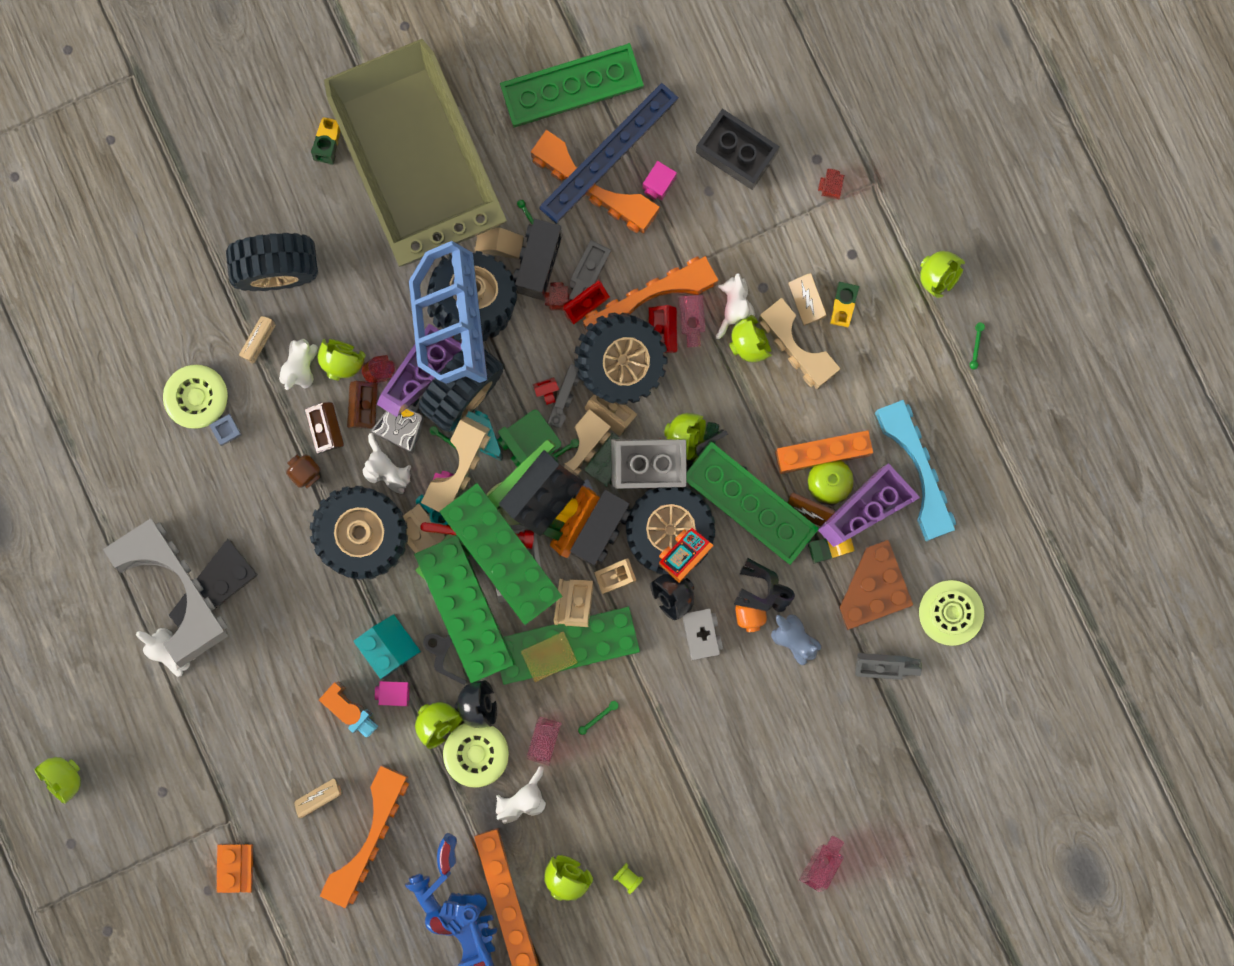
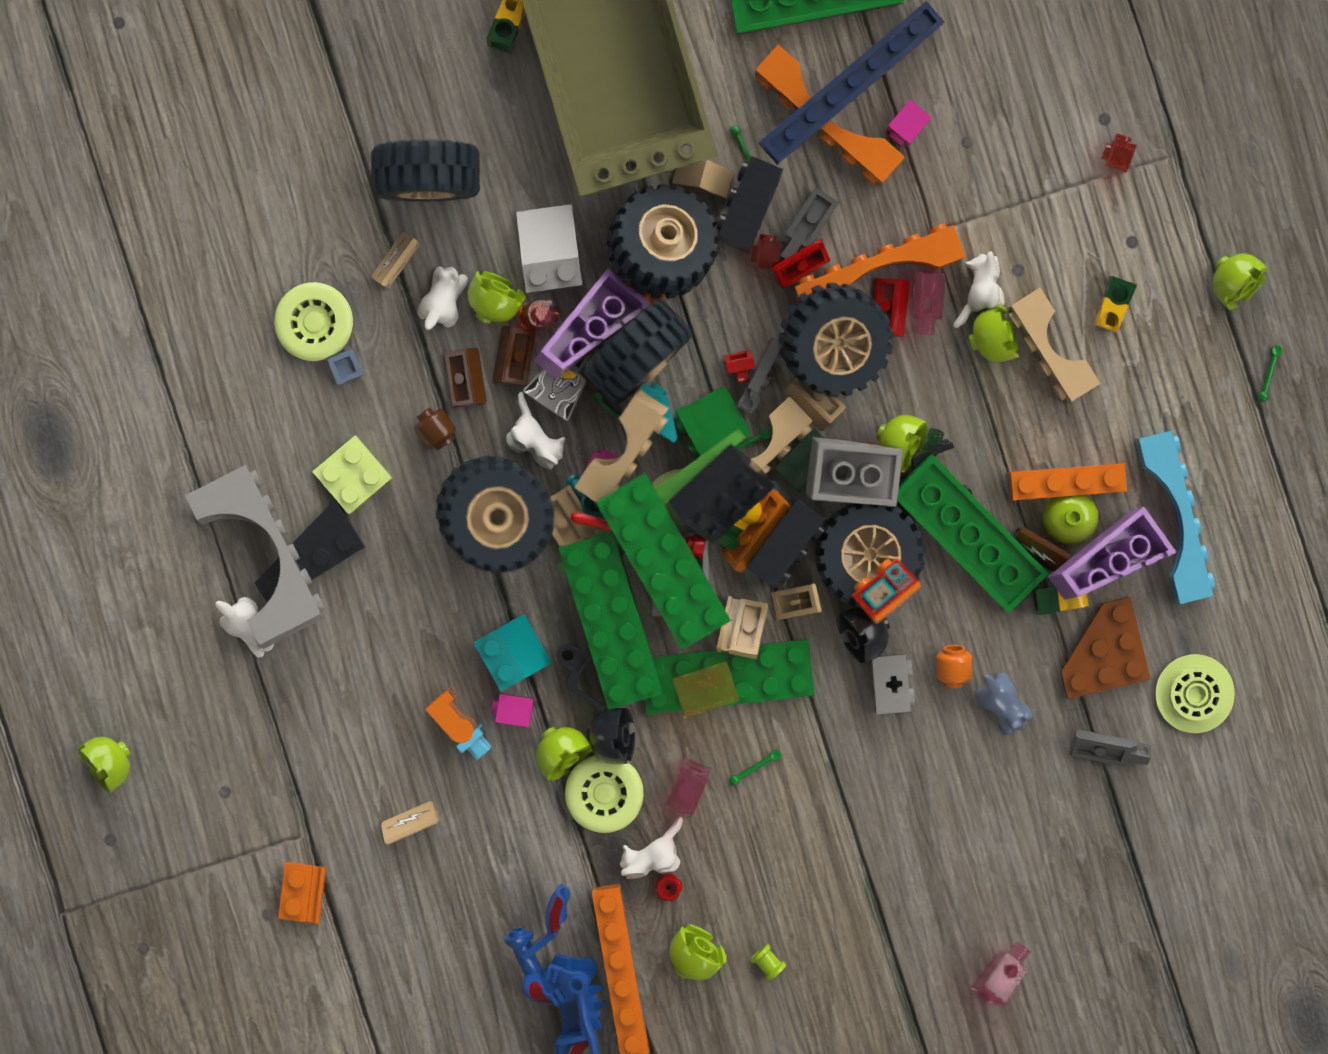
camera: 10 degrees right, 5 degrees up
(240, 517) = (352, 474): none -> yellowish green plate
(381, 316) = (549, 250): none -> light grey slope
(385, 790) = (430, 924): orange arch -> none
(468, 309) = (659, 257): medium blue plate -> none
(533, 830) = (676, 887): none -> red plate
(737, 149) = (1009, 96): black brick -> none
(778, 595) = (989, 648): black piece -> none
(807, 299) = (1070, 291): tan slope -> none

